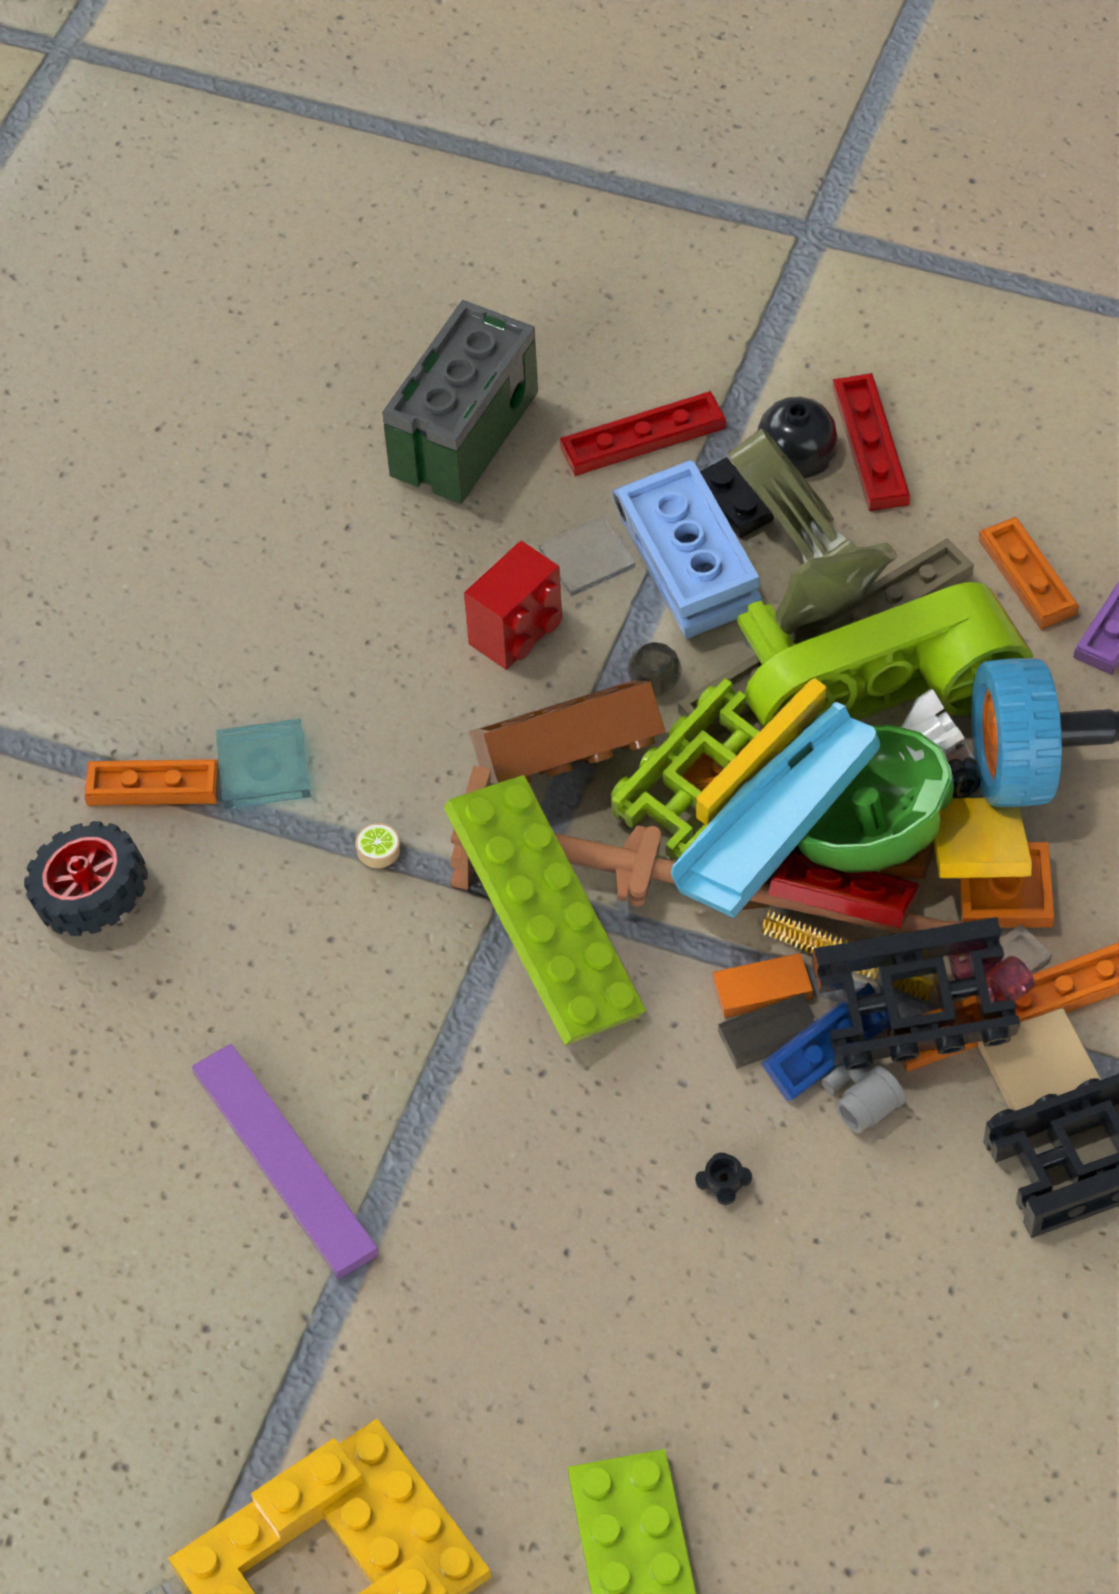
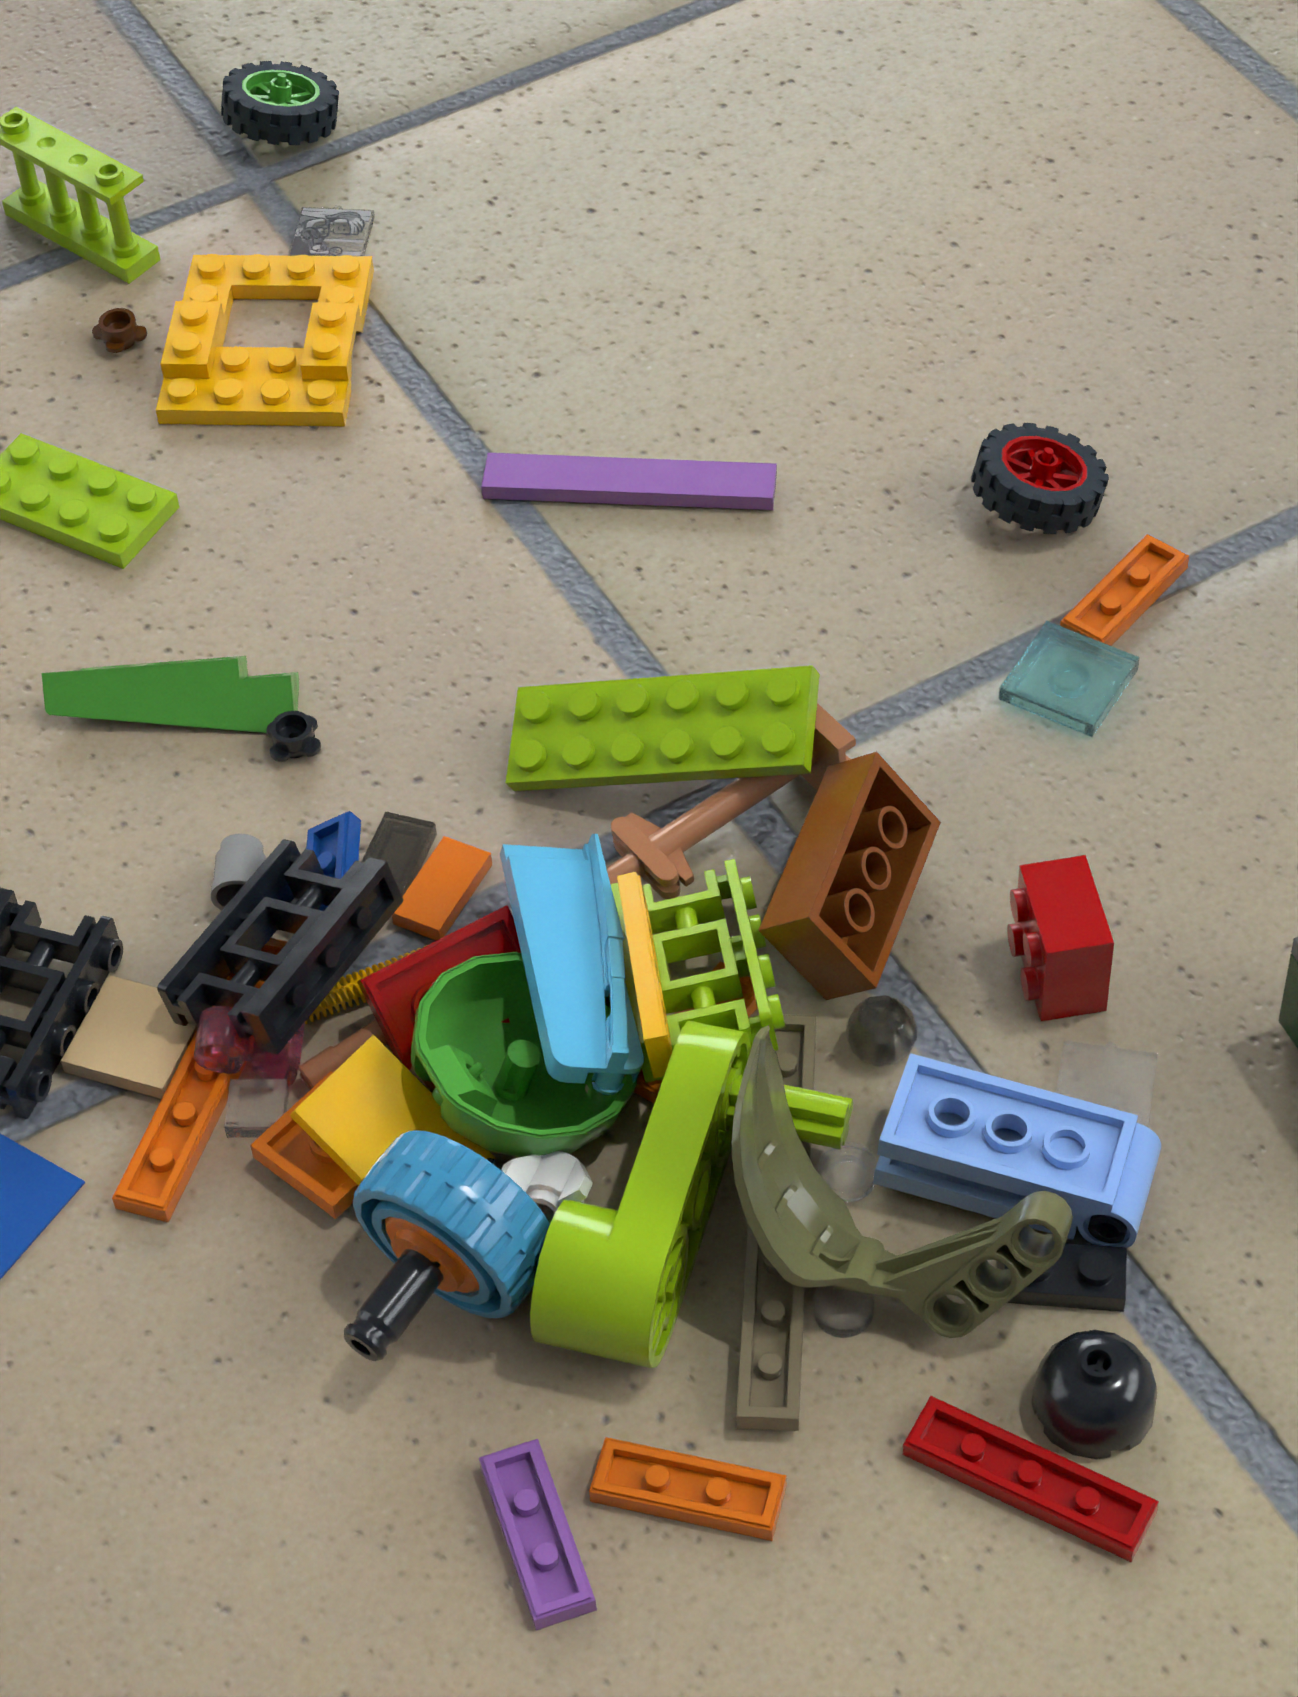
camera: 130 degrees right, 5 degrees down
(378, 845) = (887, 707): tile -> none
(642, 433) = (1242, 1258): red tile -> none
(751, 1287) = (178, 693): none -> bright green wedge

